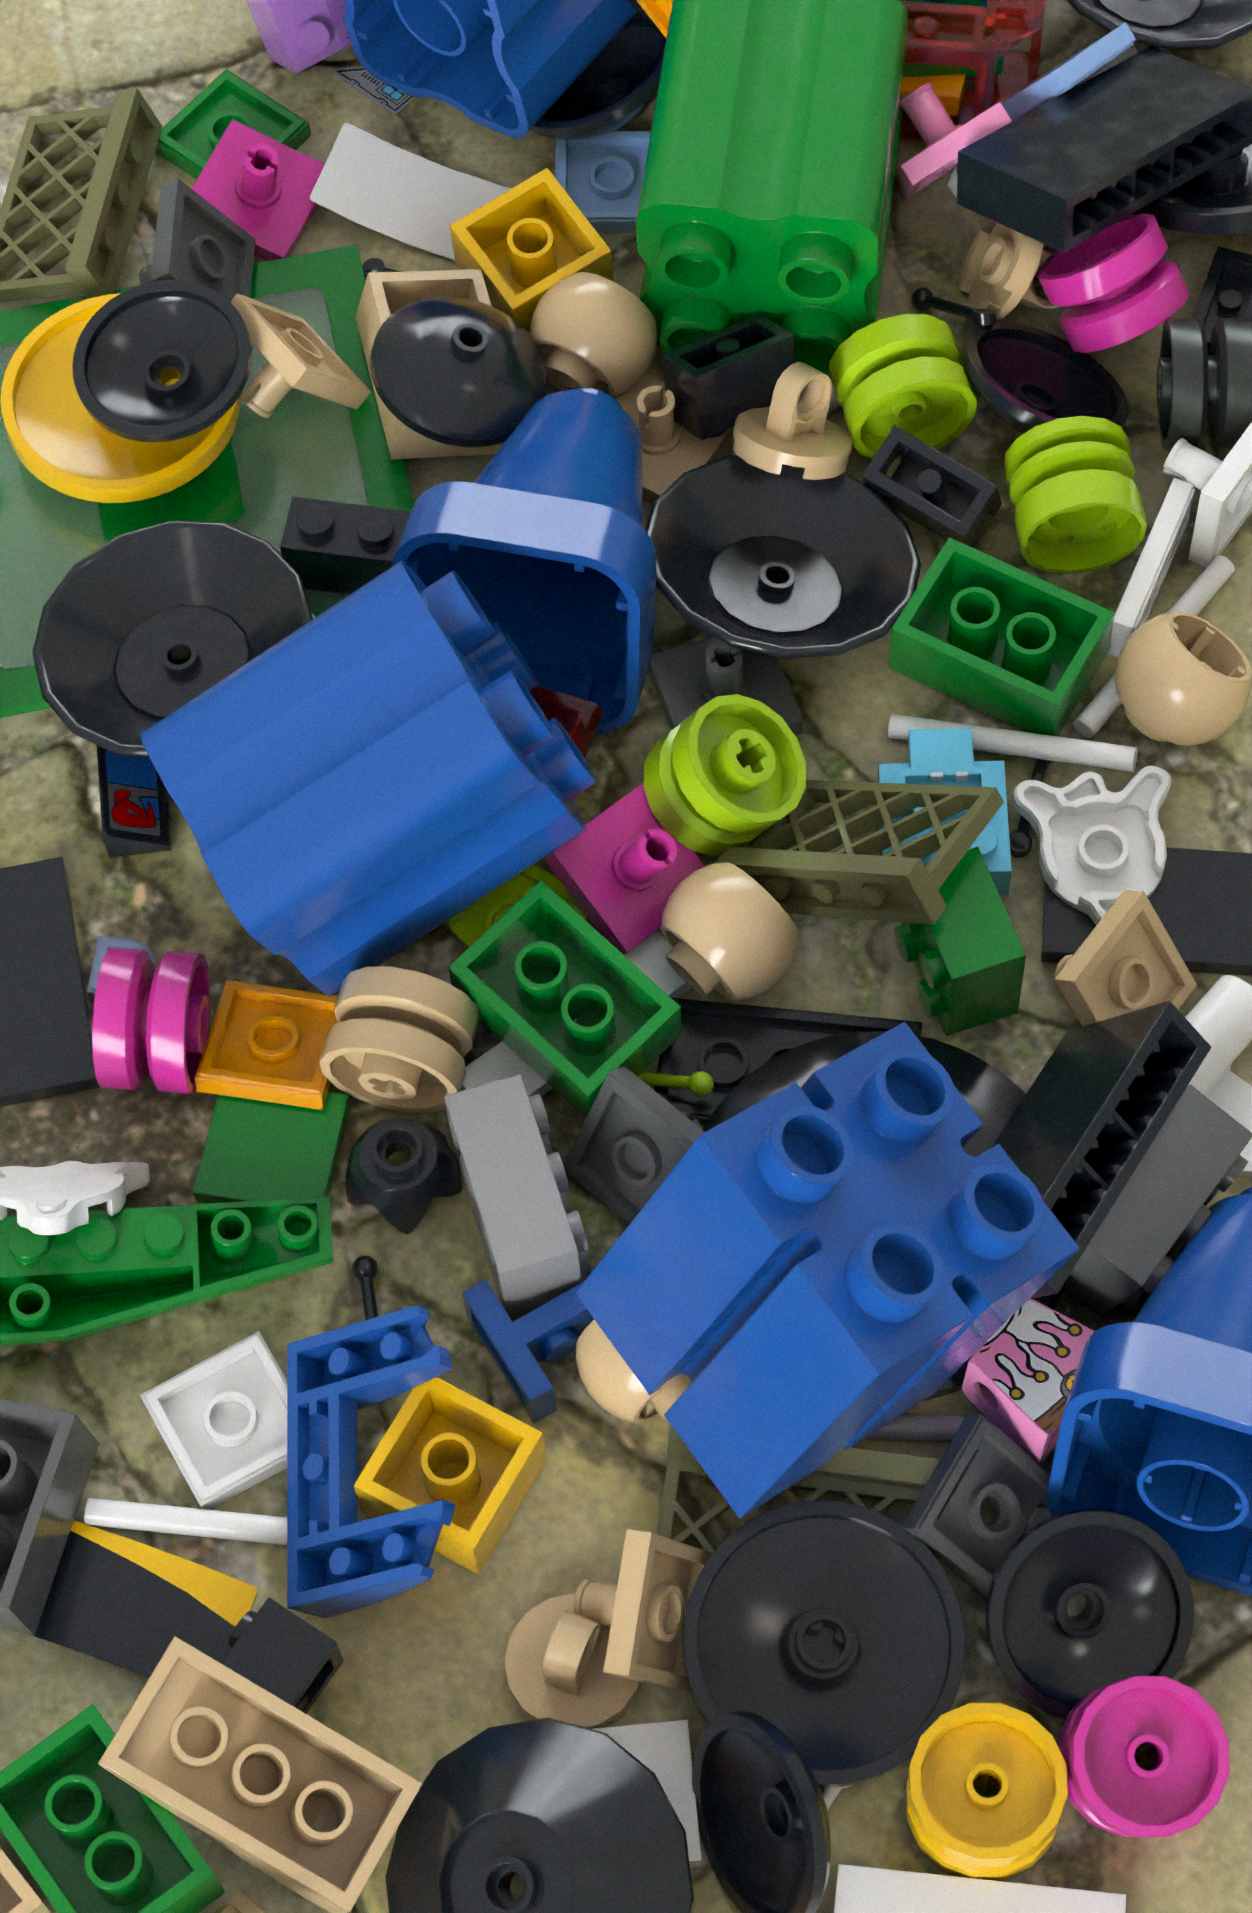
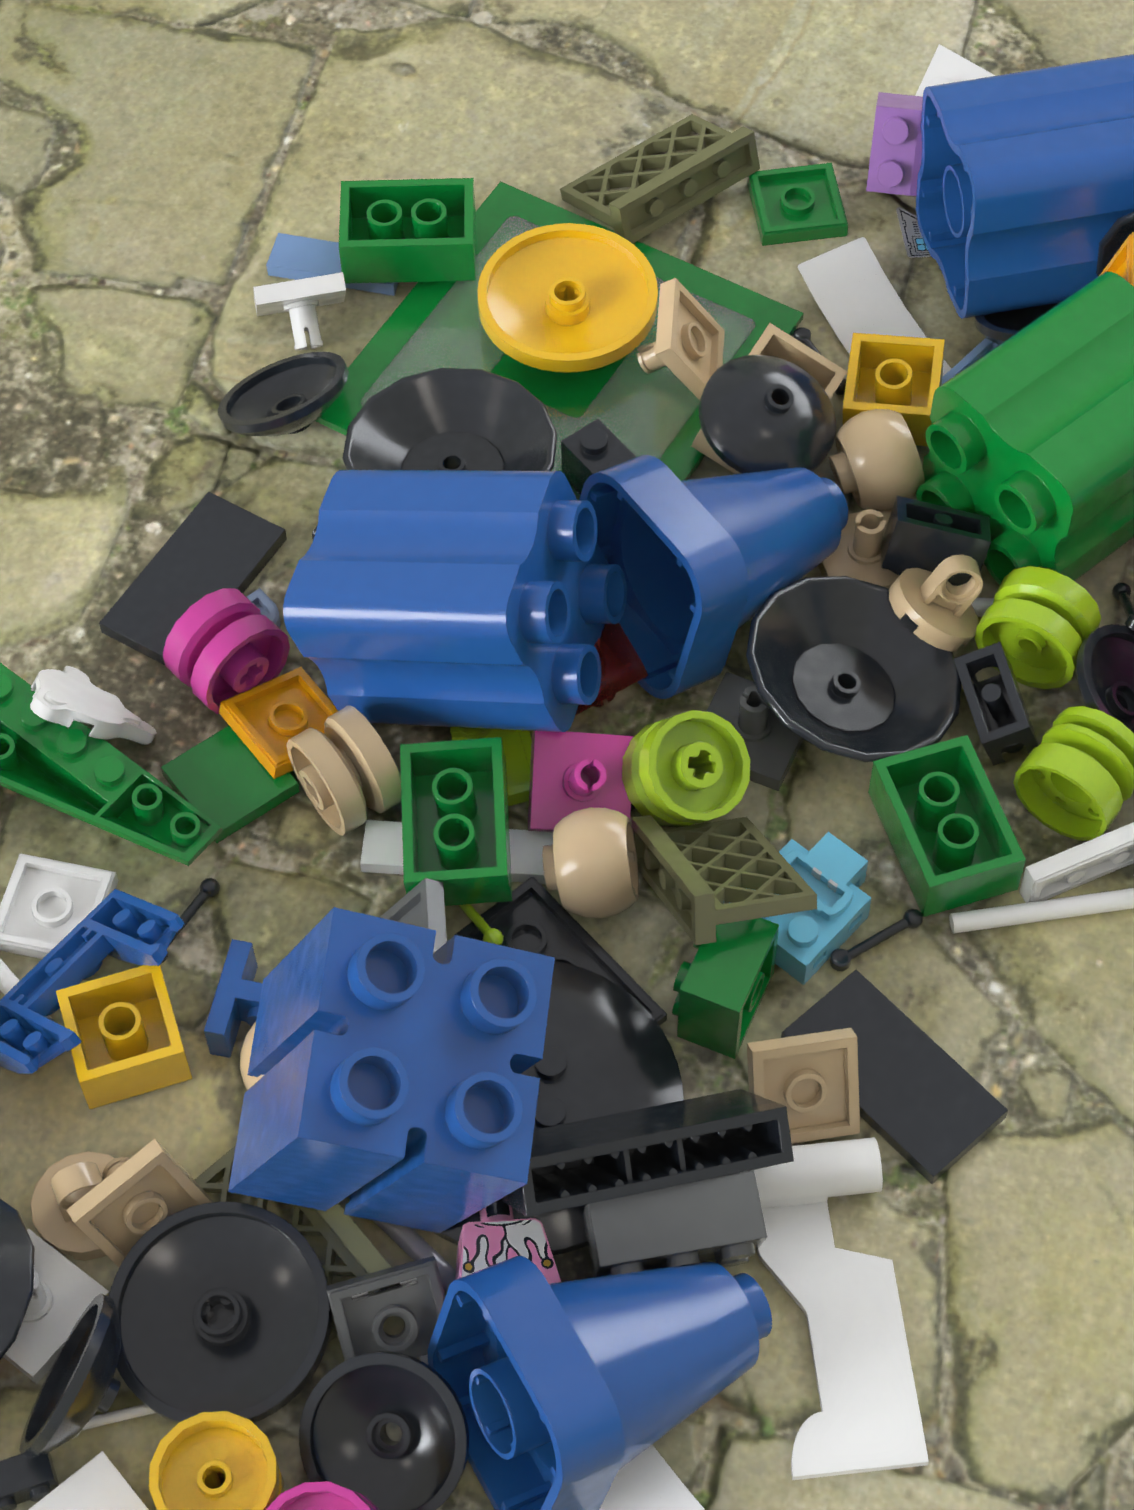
camera: 40 degrees right, 5 degrees down
(159, 336) = (596, 286): black dish -> none
(199, 244) = (692, 247): dark grey tile -> none
(261, 188) = (771, 241): dark pink tile -> none
(407, 1189) = (290, 858): black piece -> none
(517, 1193) = (329, 870): light grey brick -> none
(1027, 744) = (901, 901): white bar -> none
(1096, 838) = (886, 993): white tile -> none
(1182, 679) = (1034, 936): tan wheel -> none

